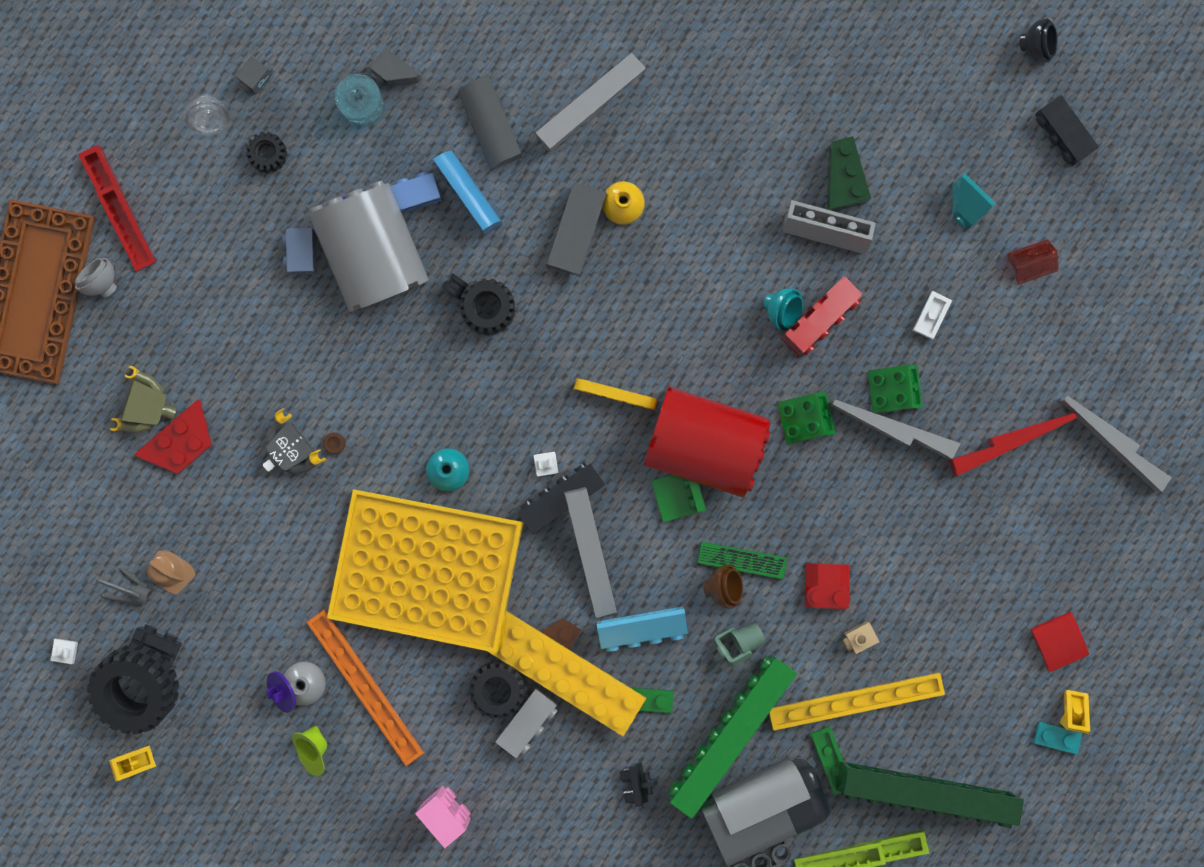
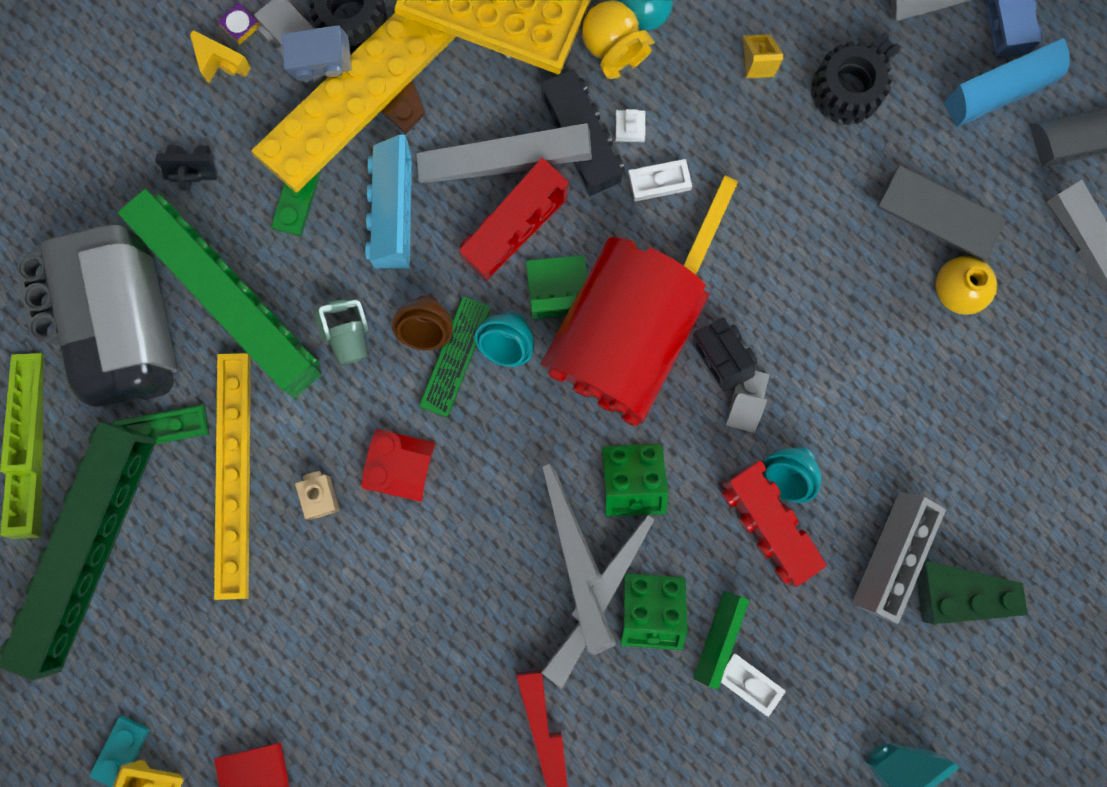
camera: 95 degrees right, 5 degrees down
(473, 376) = (761, 56): none -> yellow slope
(483, 488) = (614, 36): none -> yellow tile
(518, 772) = (238, 23): none -> tile
(543, 703) = (316, 52): none -> sand blue brick
(551, 787) = (213, 55): none -> yellow slope
(585, 435) = (659, 180): none -> white plate
(639, 536) = (515, 220): none -> red wedge
(708, 368) = (724, 353): none -> black brick
(725, 525) = (505, 339): none -> teal piece
(735, 346) = (748, 403): none -> light grey slope
(875, 445) = (581, 568): none -> light grey slope
(906, 340) = (721, 640): none -> green tile

